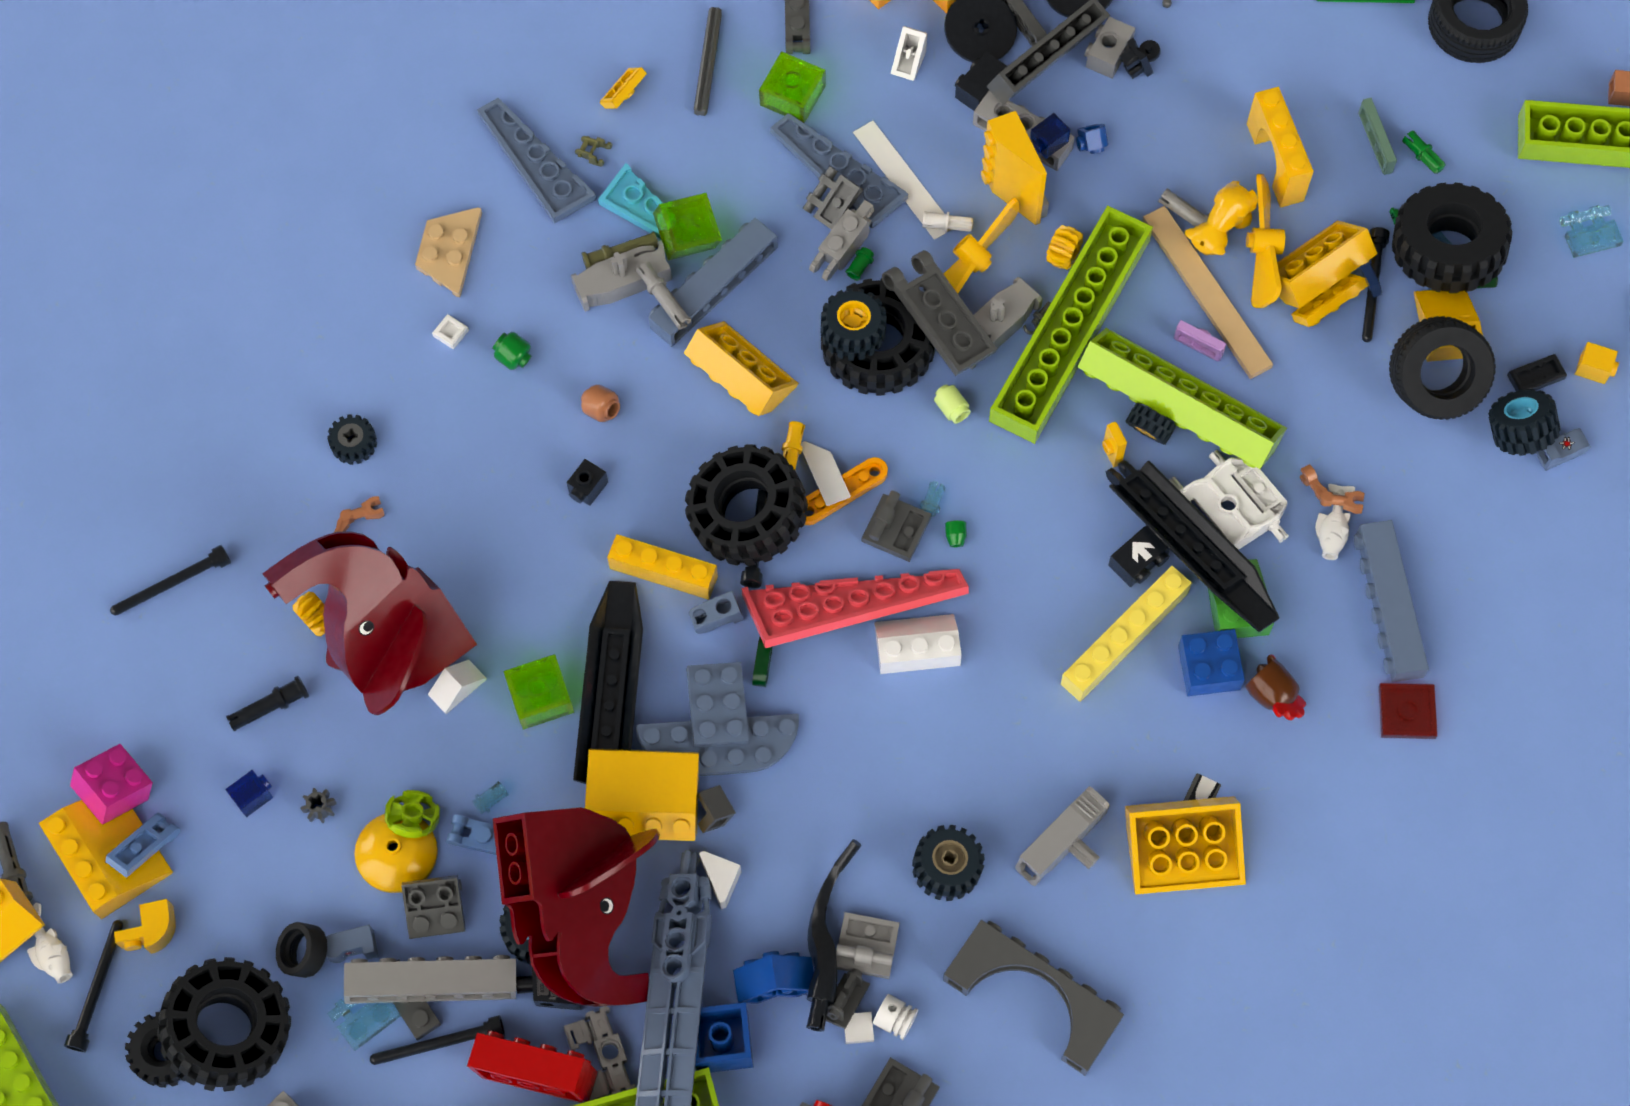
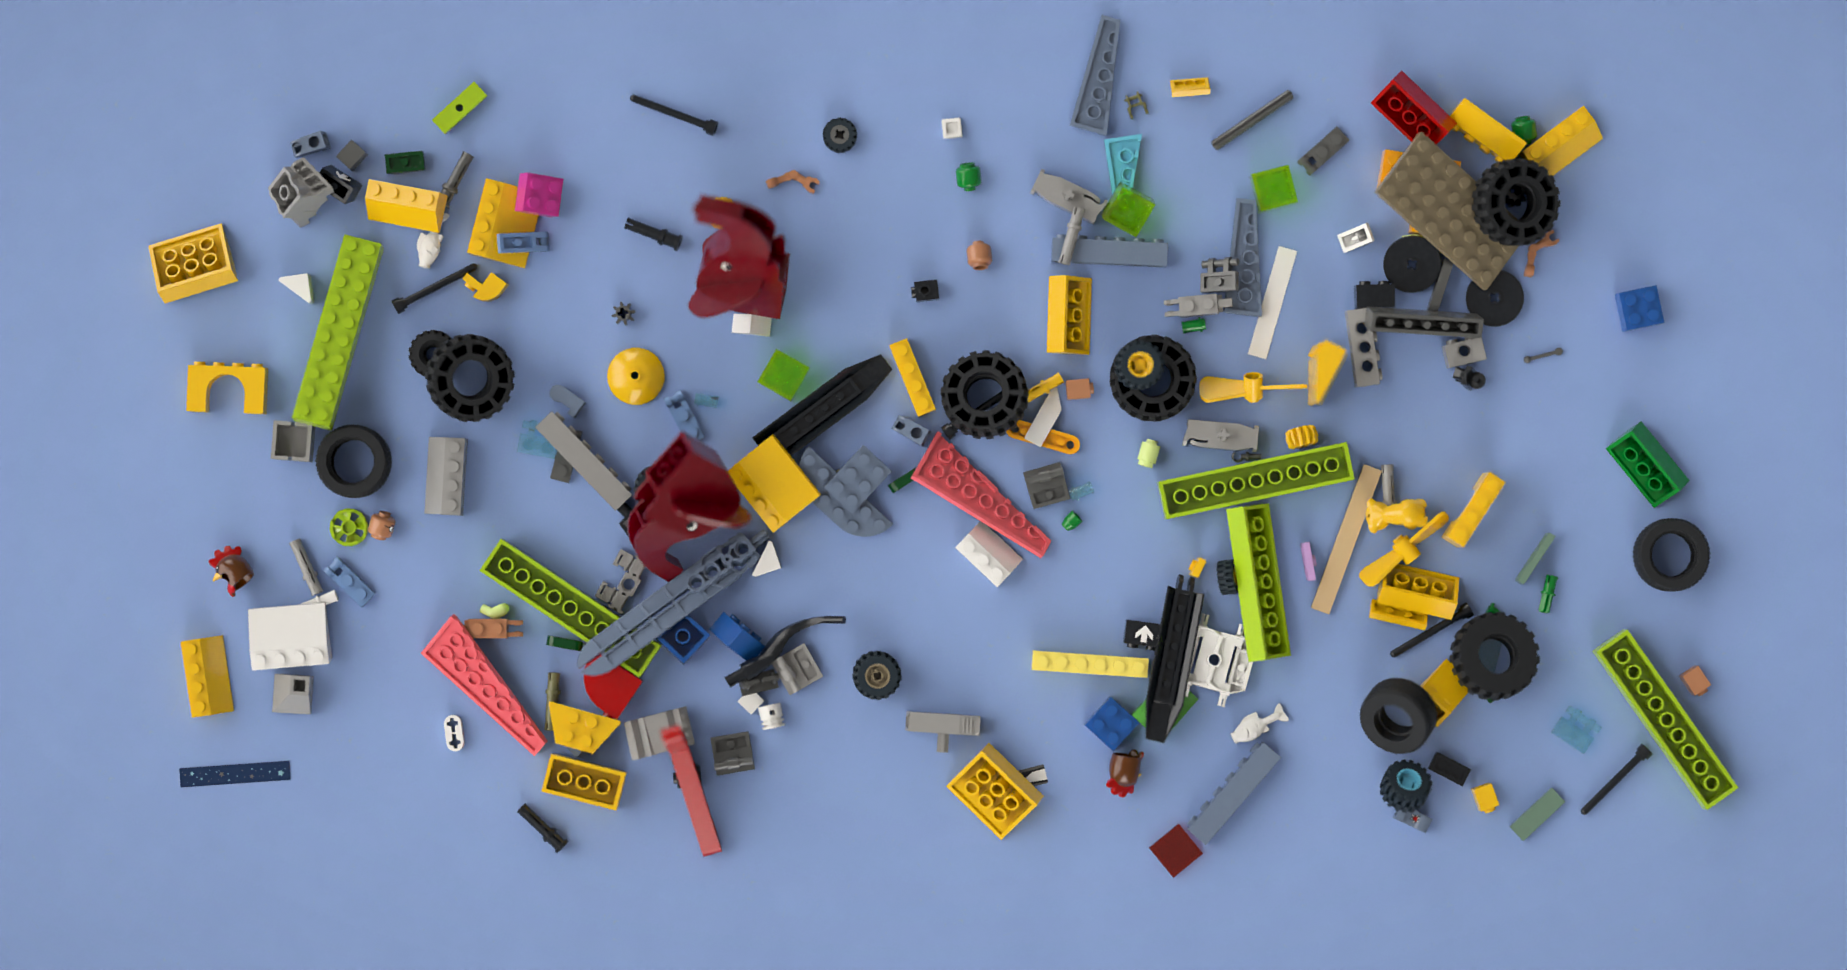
camera: 45 degrees right, 20 degrees up
(250, 792) = (599, 270): clear blue brick -> none
(315, 949) = (549, 385): black tyre -> none
(411, 814) = (661, 367): lime piece -> none
(433, 906) = (623, 425): dark grey plate -> none
(448, 248) = (1001, 78): tan wing -> none
(493, 1024) = (588, 513): black piece -> none
(532, 1067) = (584, 556): red brick -> none
(607, 252) = (1075, 177): olive pin -> none
(717, 807) = (802, 526): dark grey panel -> none
(824, 417) = (1079, 389): none -> nougat brick
(941, 314) = (1191, 407): dark grey hinge -> none
(947, 221) = (1263, 353): white axle -> none
(992, 952) = (848, 737): dark grey arch -> none
(1050, 135) = (1363, 371): clear blue brick -> none
(1092, 138) = (1390, 393): blue plate -> none
(1327, 498) = (1266, 710): nougat piece -> none
(1371, 280) = (1428, 630): dark blue tile -> none

